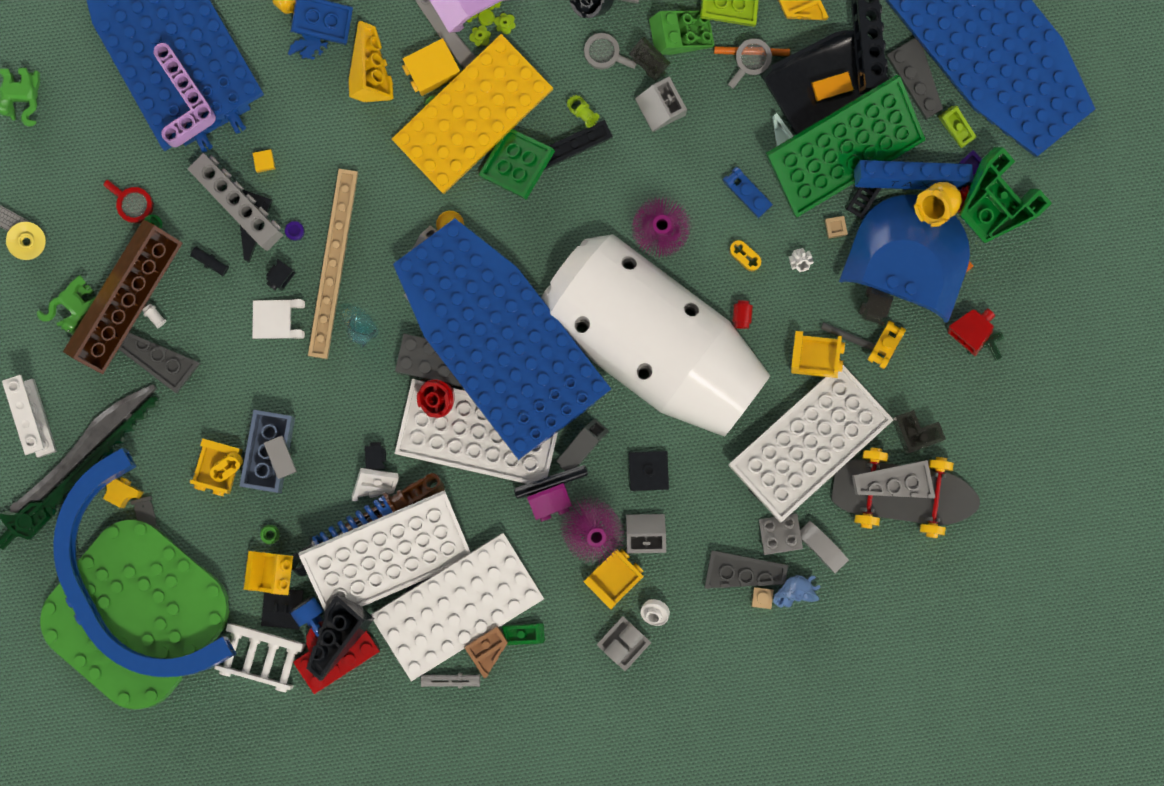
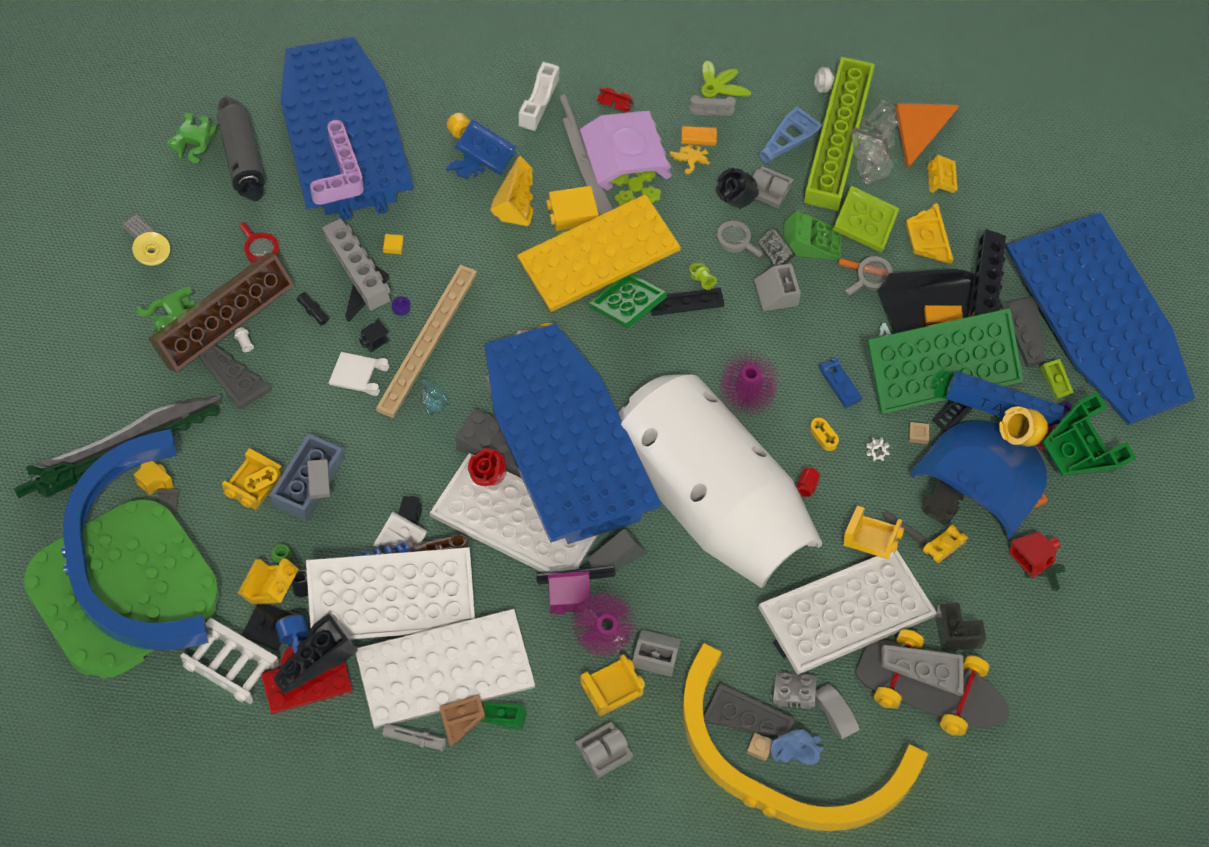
camera: 10 degrees right, 25 degrees down
(29, 416) = (94, 386): white fence -> none
(72, 96) = (240, 149): none -> dark grey piece
(648, 471) = (676, 597): black plate -> none
(655, 612) = (645, 727): white plate -> none
(888, 615) = (769, 801): none -> yellow arch

